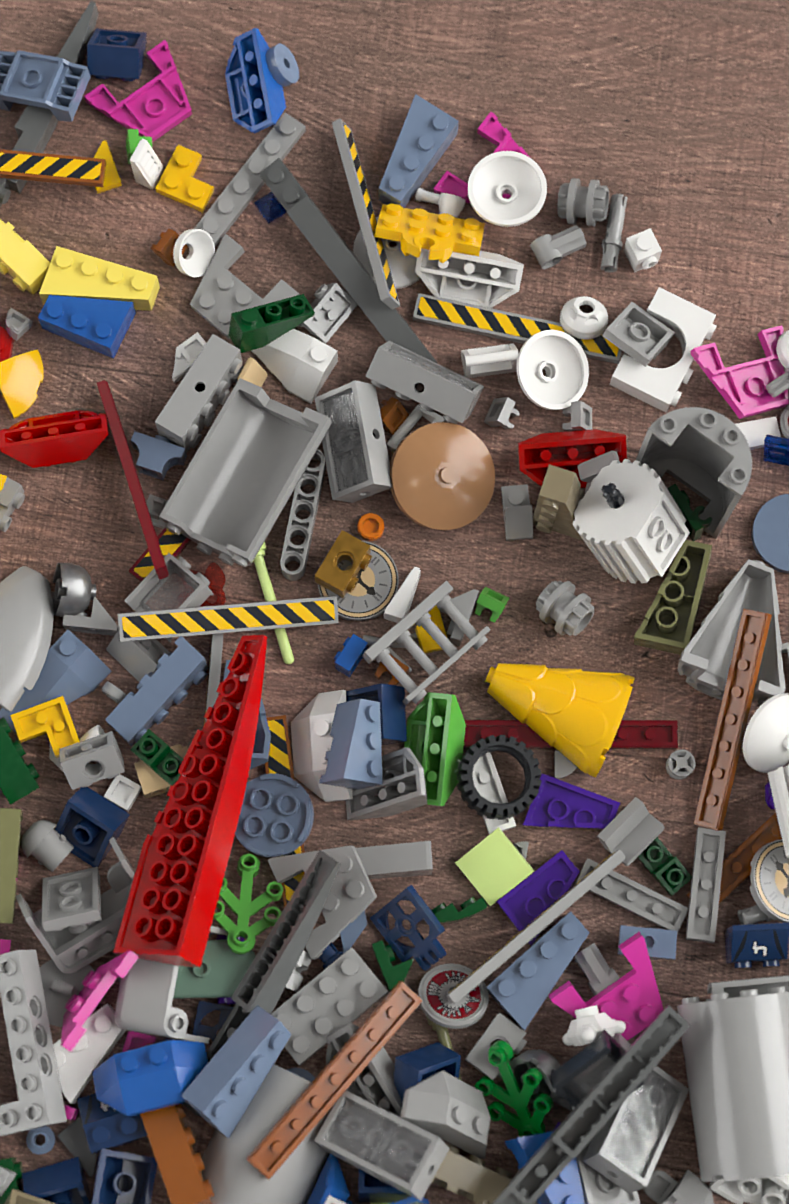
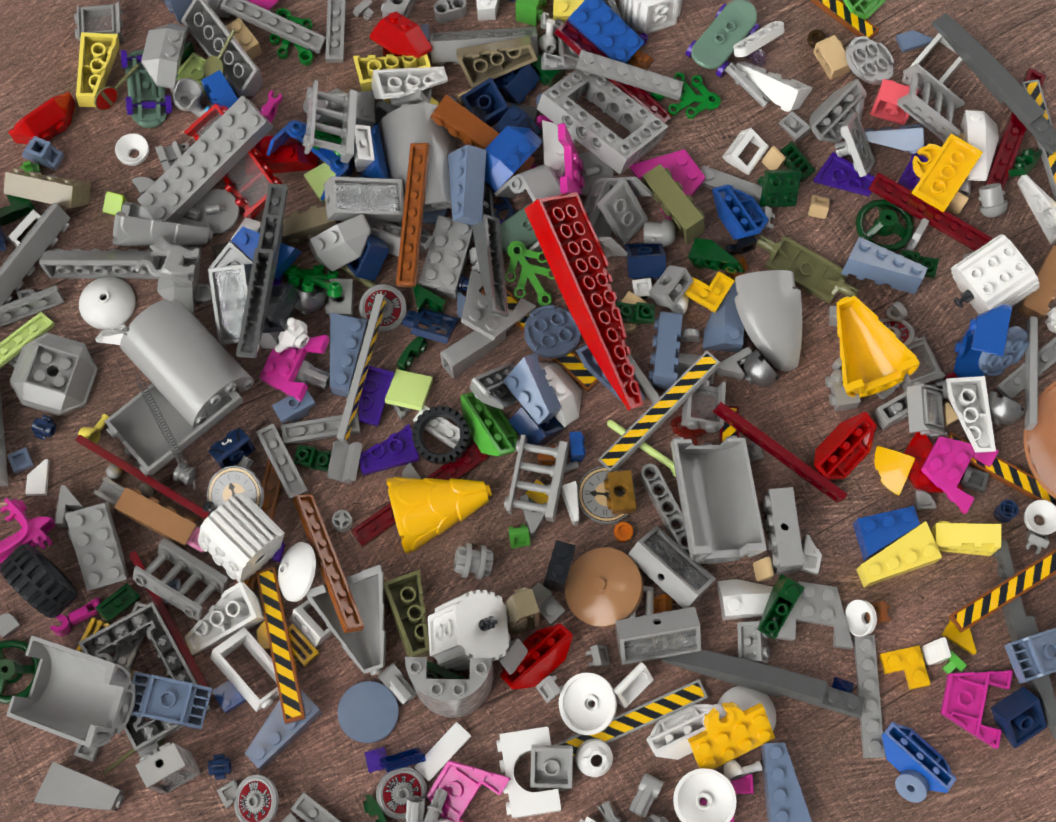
camera: 145 degrees right, 5 degrees down
(156, 455) = (779, 478): sand blue brick -> none
(365, 214) = (781, 721): light grey tile -> none
(475, 529) = (559, 566): none -> black window
(741, 539) = (394, 680): none -> light grey piece

